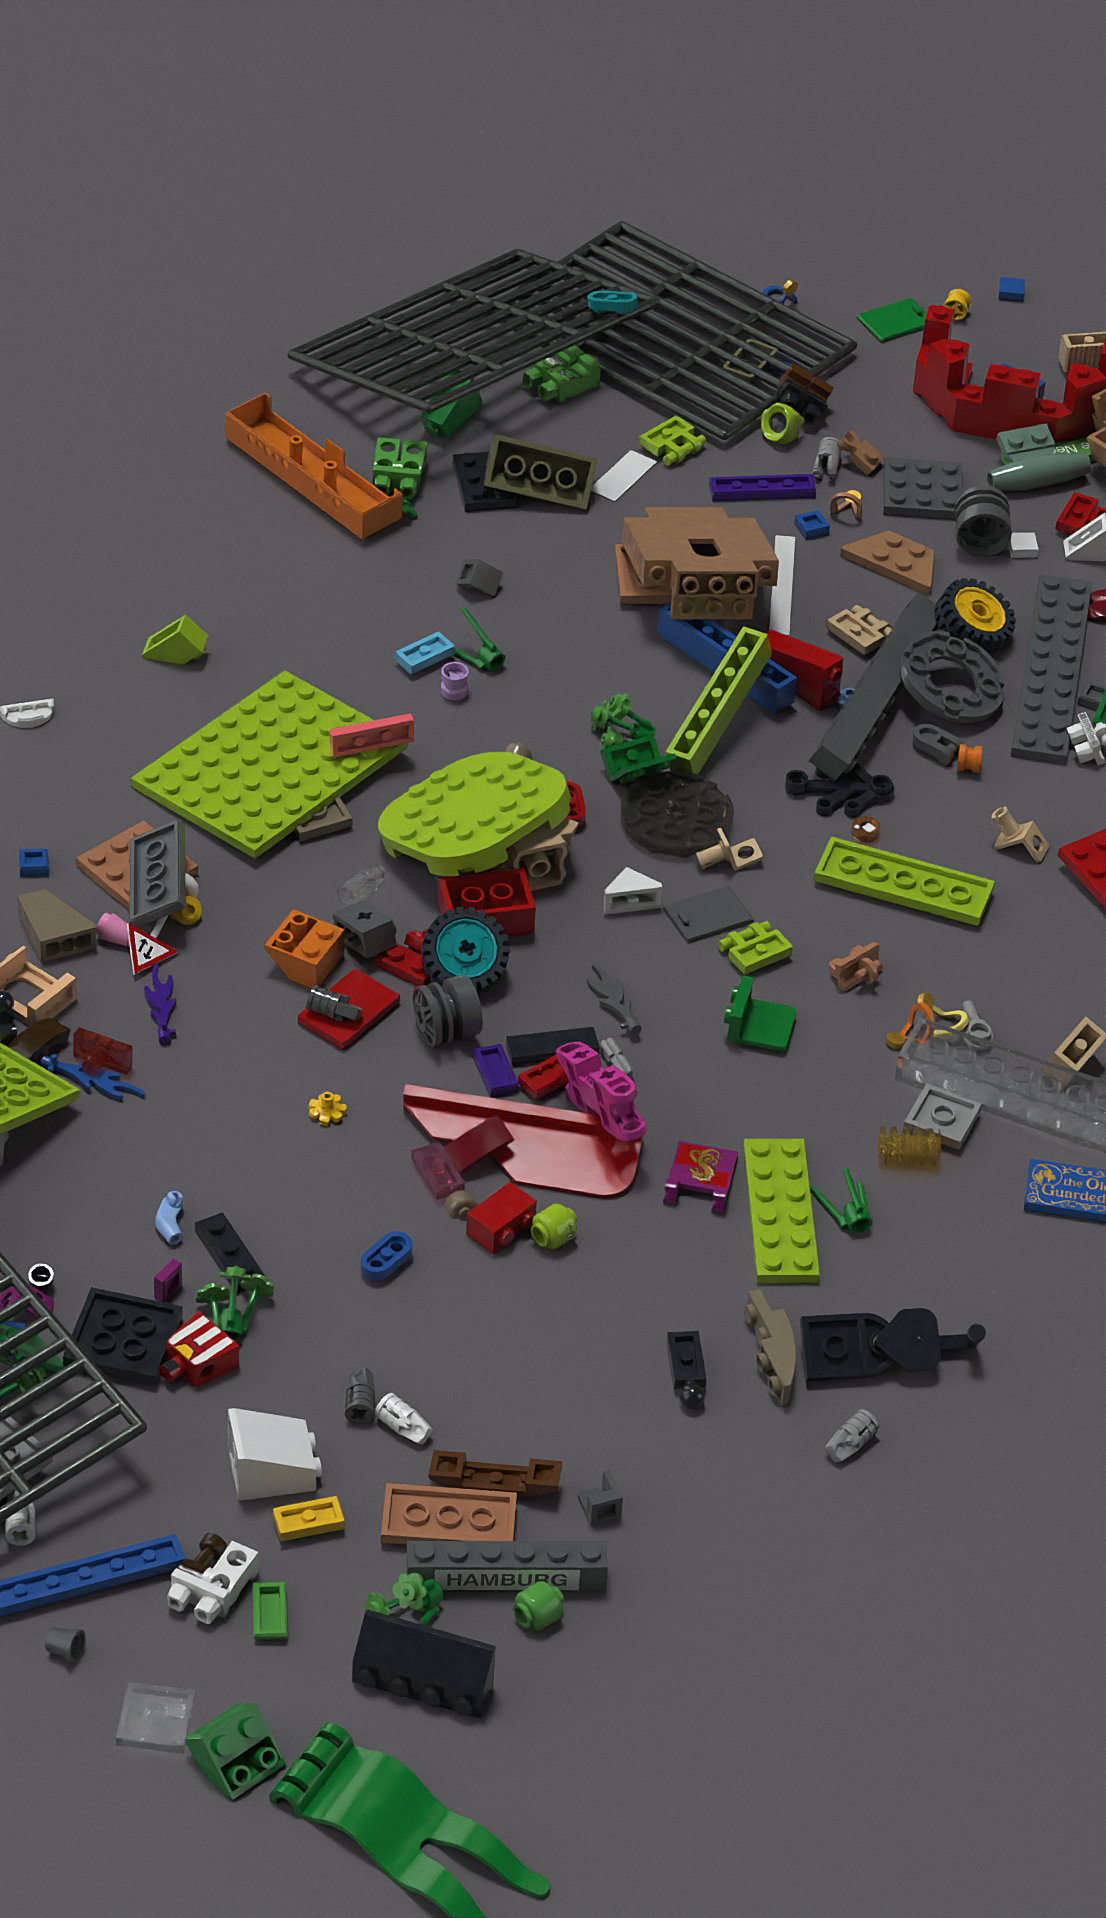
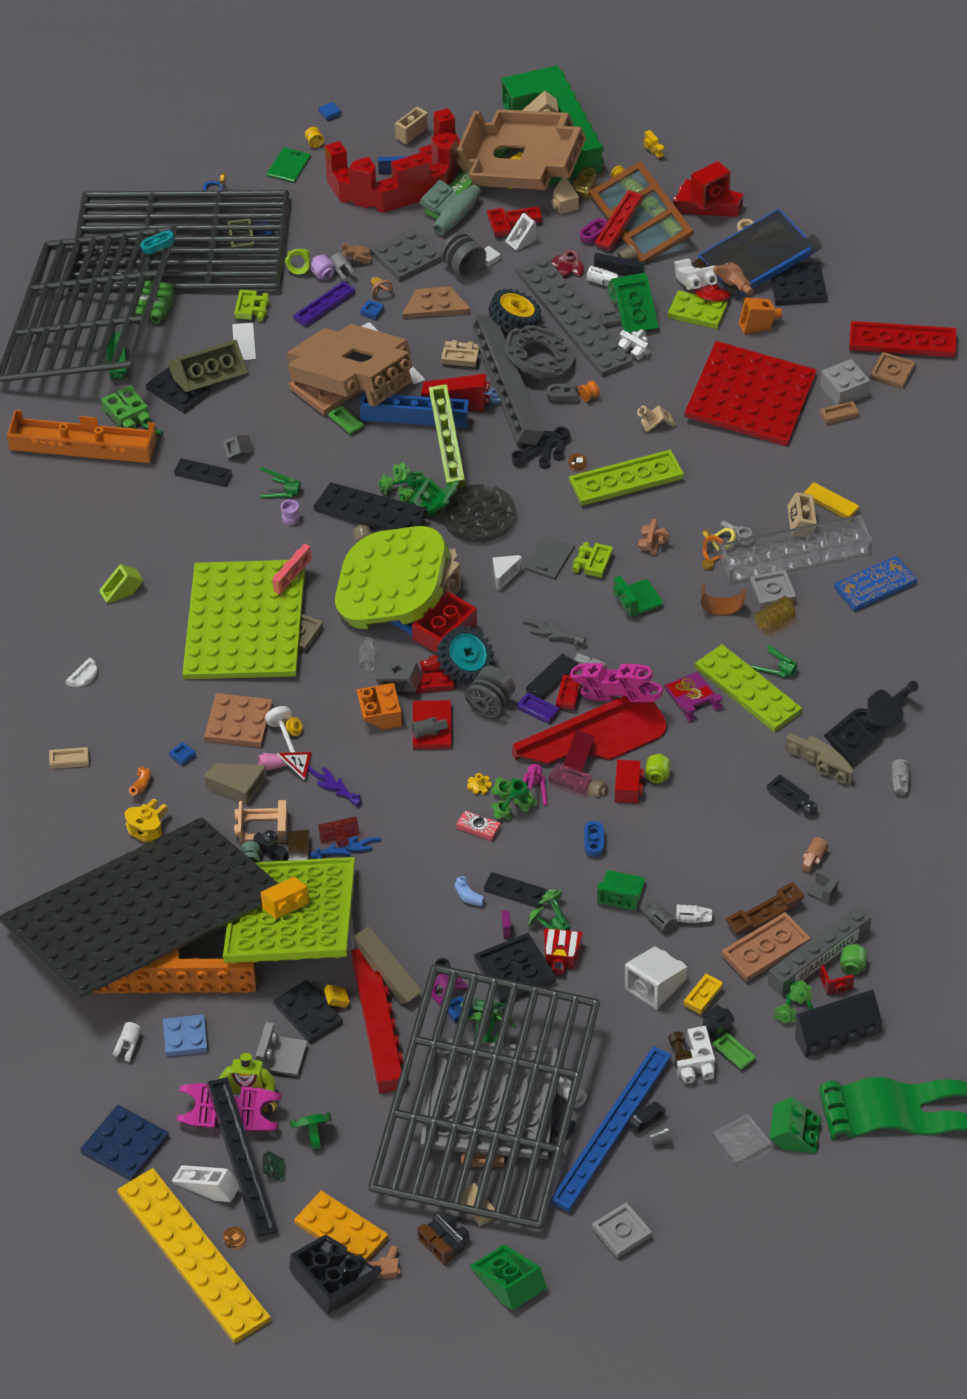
camera: 35 degrees left, 5 degrees up
(74, 1610) = (647, 1117): none -> black beam
(157, 873) = (266, 716): dark grey tile -> none
(271, 1153) = (478, 825): none -> tile
(283, 1560) = (718, 1022): none -> black brick
(342, 1134) = (517, 790): none -> bright green plant
(349, 1333) = (620, 890): none -> green bracket
(396, 1140) = (533, 777): none -> dark pink plant
(410, 583) = (203, 472): none -> black plate
(424, 652) = (256, 506): medium azure plate -> none
(485, 1623) = (836, 985): none -> red bracket
(551, 731) = (368, 508): none -> black plate
(634, 1452) = (814, 854): none -> nougat hinge
(639, 623) = (346, 420): none -> bright green tile
(724, 852) = (527, 517): tan bracket -> none
(802, 445) = (322, 267): none -> lavender head
(803, 393) = (295, 236): hips -> none
(848, 1089) = (722, 606): none -> dark orange piece

